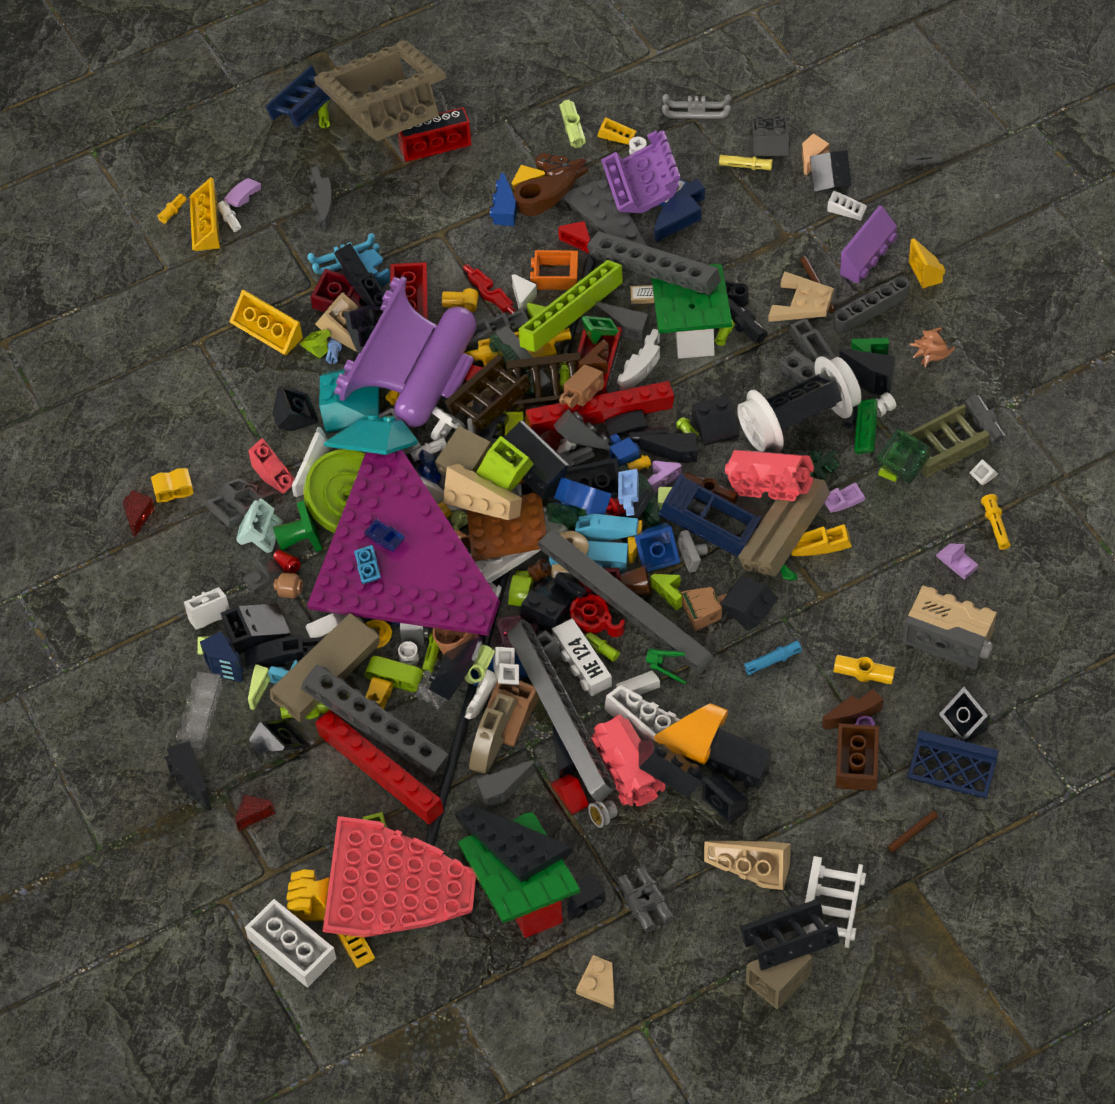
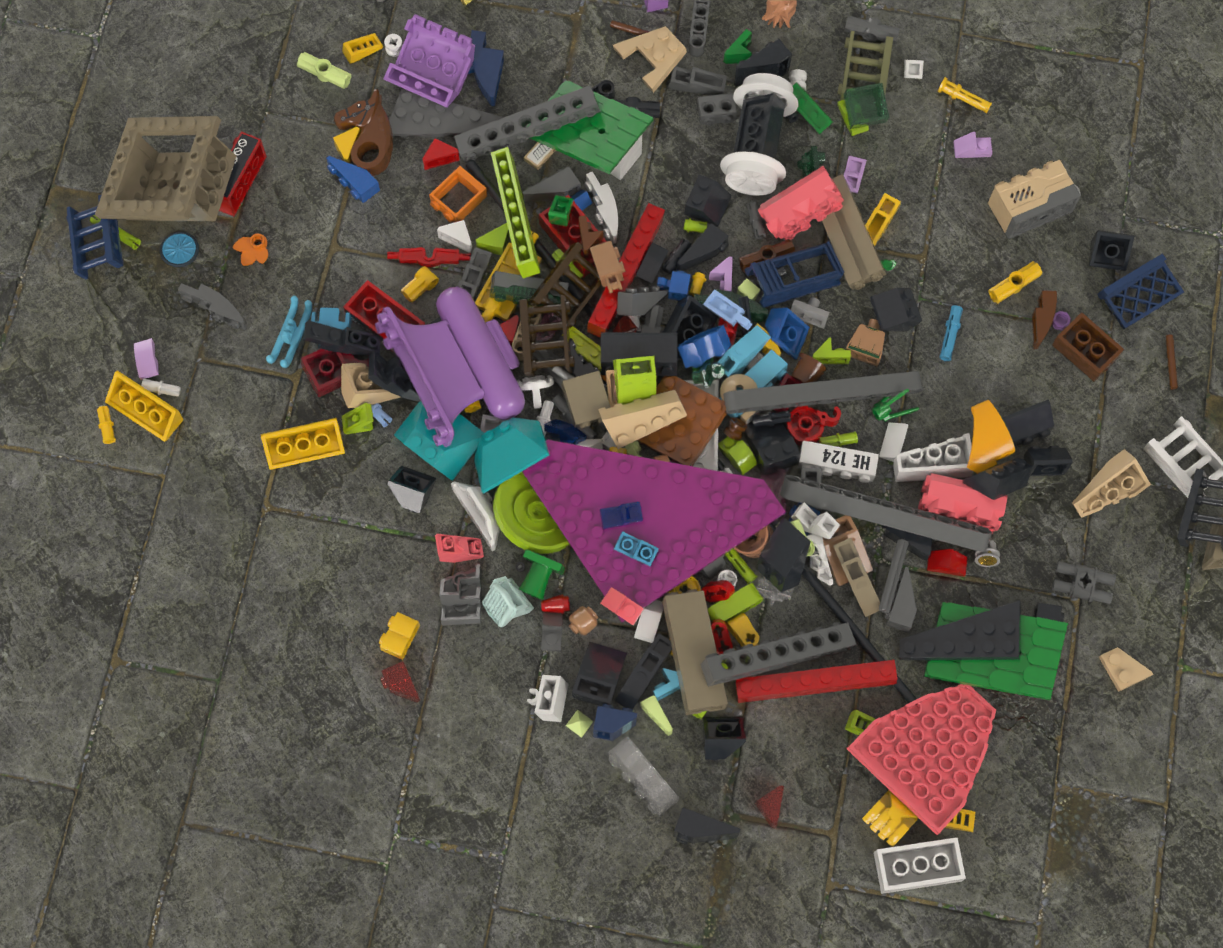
camera: 55 degrees left, 15 degrees up
(316, 593) = (622, 606): none -> coral slope
(347, 151) = (179, 249): none -> dark azure wheel
(357, 680) = (725, 635): none -> red beam
(389, 188) = (250, 251): none -> orange plate
(392, 650) = (722, 590): none -> red beam
(517, 757) = (893, 576): none -> dark grey axle
(631, 345) = (582, 199): none -> blue slope

